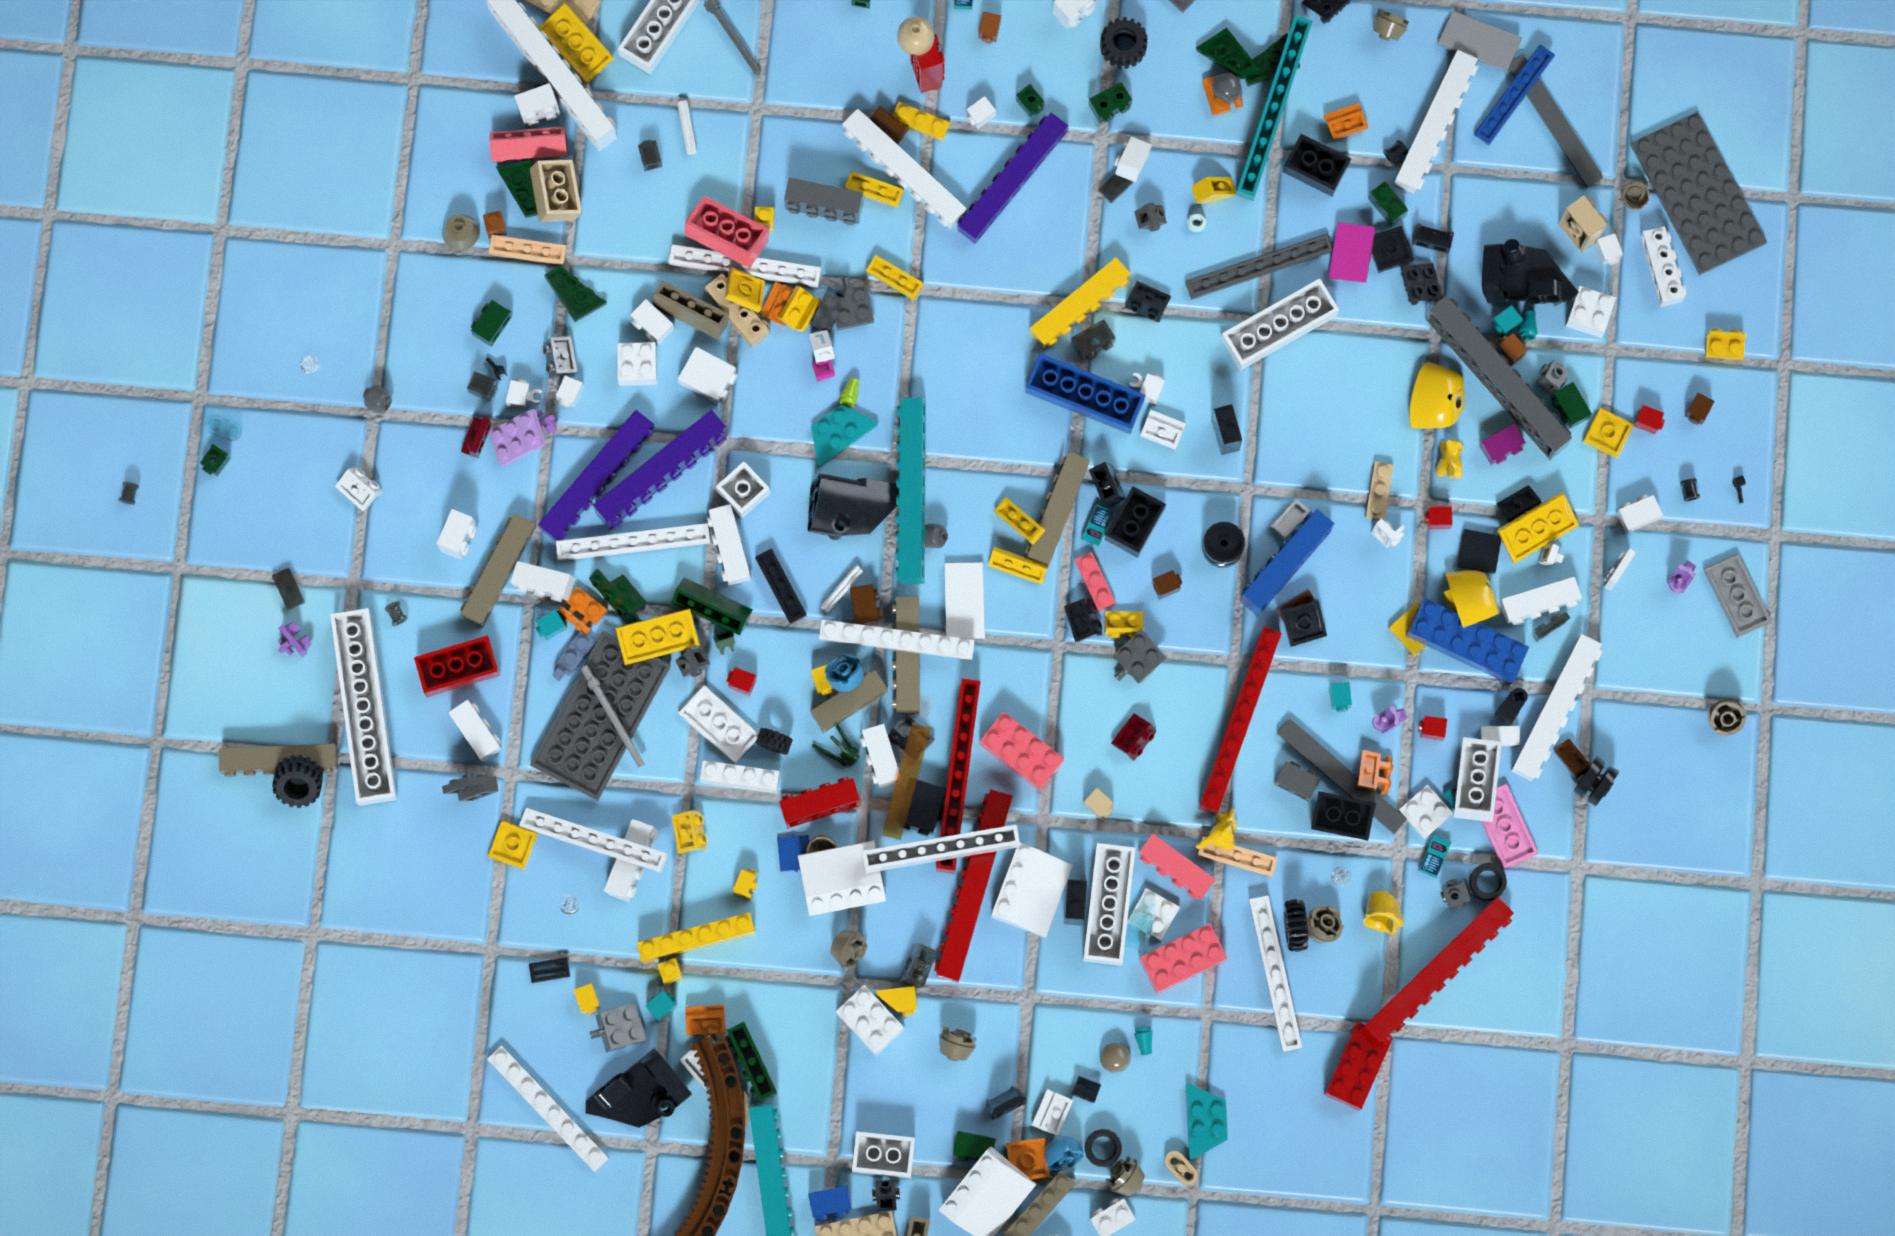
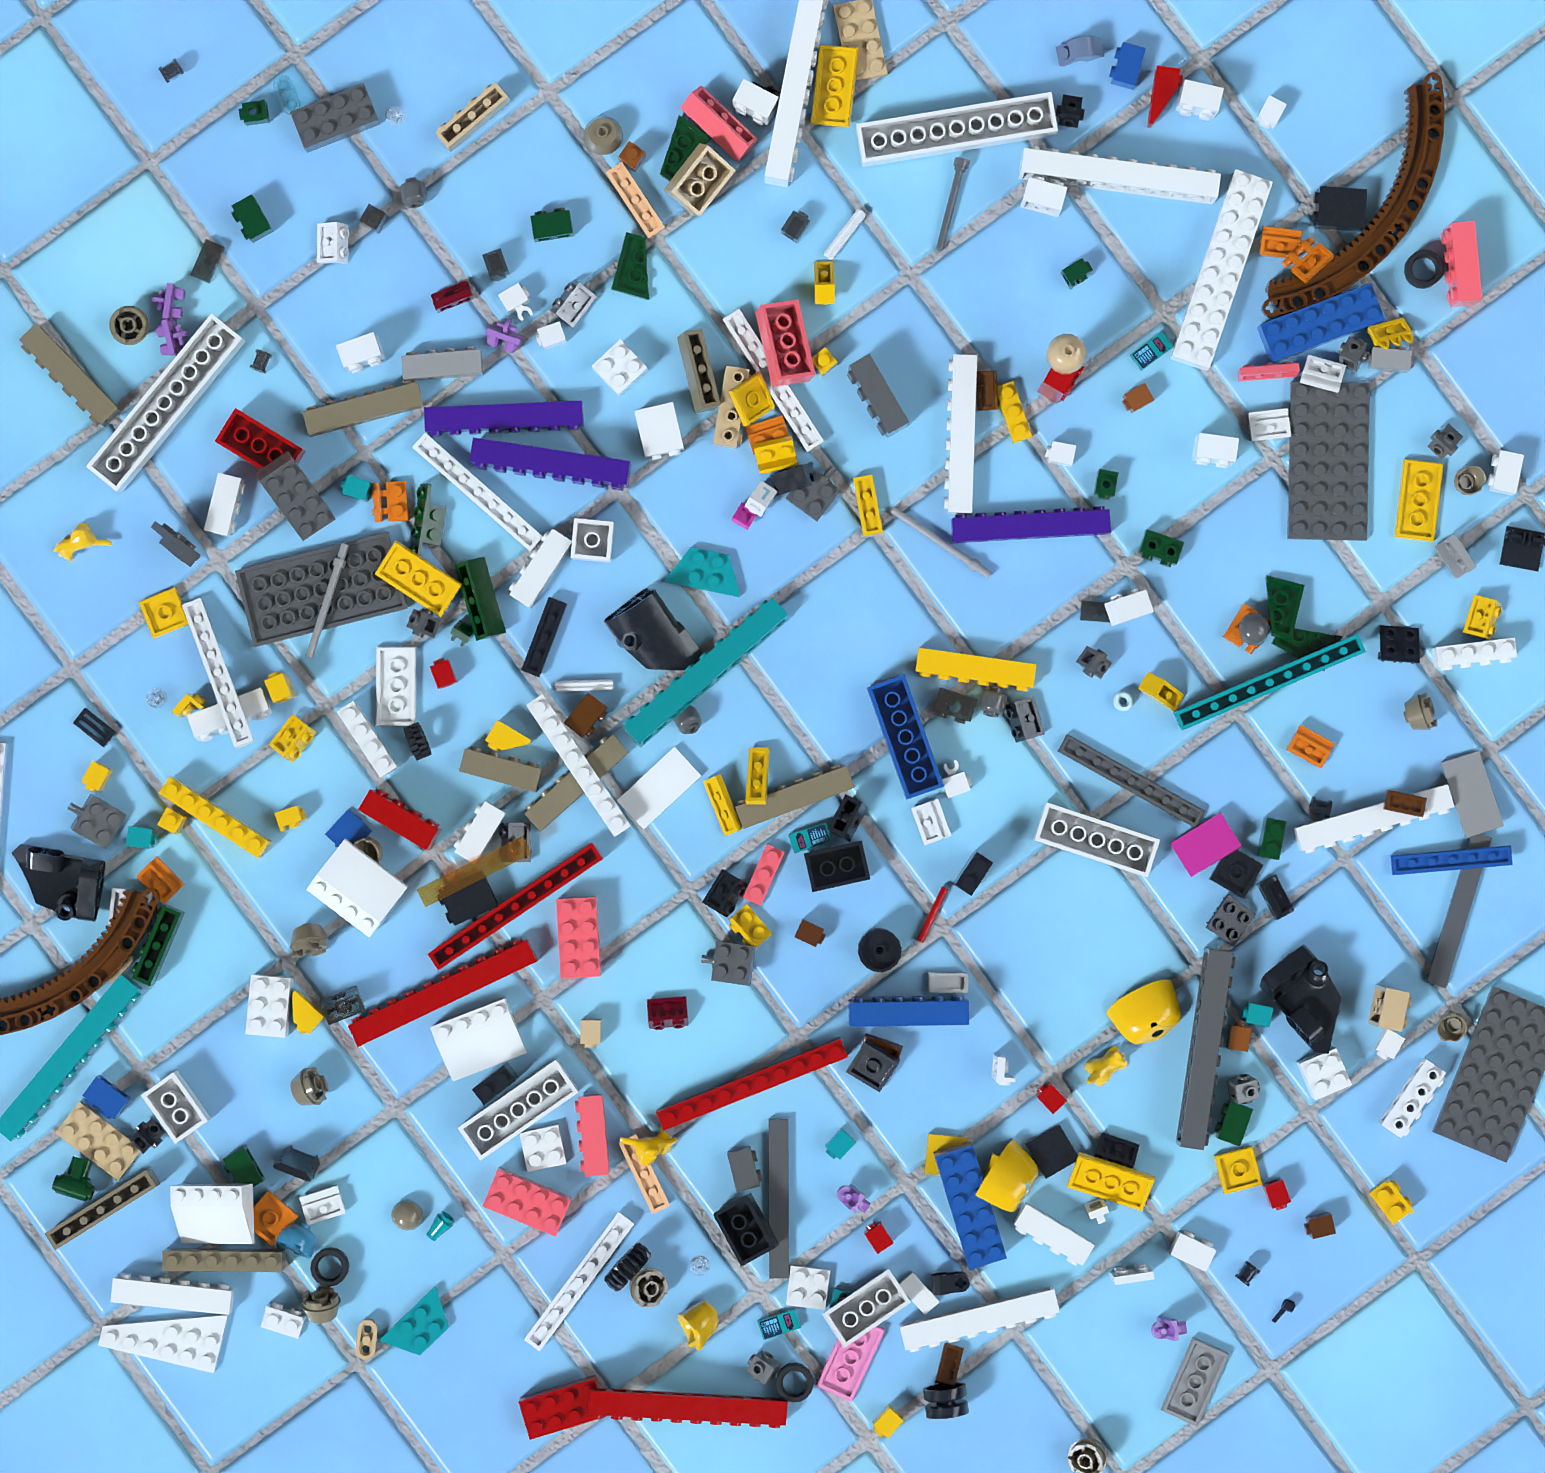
camera: 50 degrees right, 10 degrees up
(272, 407) = (335, 118): none -> dark grey brick
(283, 682) = (129, 325): none -> dark tan cone
(288, 528) = (252, 219): none -> dark green brick
(294, 793) = (62, 407): black tyre -> none
(312, 658) = (173, 335): none -> medium lavender hips
(362, 309) = (472, 117): none -> brick
(369, 442) = (373, 218): none -> clear smoke brick
(403, 856) = (80, 538): none -> yellow animal
(496, 369) = (520, 263): black hand -> none
(517, 437) = (477, 329): lavender plate -> none
(517, 669) = (295, 496): none -> dark grey brick
(518, 486) = (442, 365): none -> light grey brick
(542, 581) = (383, 451): white brick -> none
(573, 655) = (351, 526): sand blue hinge -> none
(596, 884) = (186, 705): none -> yellow bracket
(644, 805) = (280, 687): none -> yellow brick
(651, 322) = (663, 349): white brick -> none
(708, 170) = (824, 282): none -> yellow slope
(845, 673) = (514, 750): dark azure cylinder -> none
(849, 754) = (458, 807): dark green plant -> none
(850, 393) = (744, 553): lime cone -> none
(875, 189) = (924, 425): yellow plate -> none
(941, 848) = (441, 946): white brick -> none
(1004, 241) = (973, 564): none -> light grey bar
(1086, 1089) = (362, 1215): black piece -> none
(1116, 311) = (993, 702): none -> dark grey head
(1123, 28) = (1228, 501): black tyre -> none
(1140, 930) = (519, 1150): clear light blue panel -> none
(1231, 488) = (932, 914): none -> red bar
(1316, 165) = (1253, 755): black brick -> none
(1369, 771) = (799, 1217): orange plate -> none
(1379, 491) = (1031, 1032): tan plate -> none
(1445, 89) = (1405, 803): none -> reddish brown plate
(1503, 444) = (1154, 1096): magenta brick -> none
(1529, 327) = (1268, 1035): teal cone -> none
(1556, 622) = (1048, 1260): clear smoke plate -> none
(1576, 839) = (887, 1422): none -> yellow brick

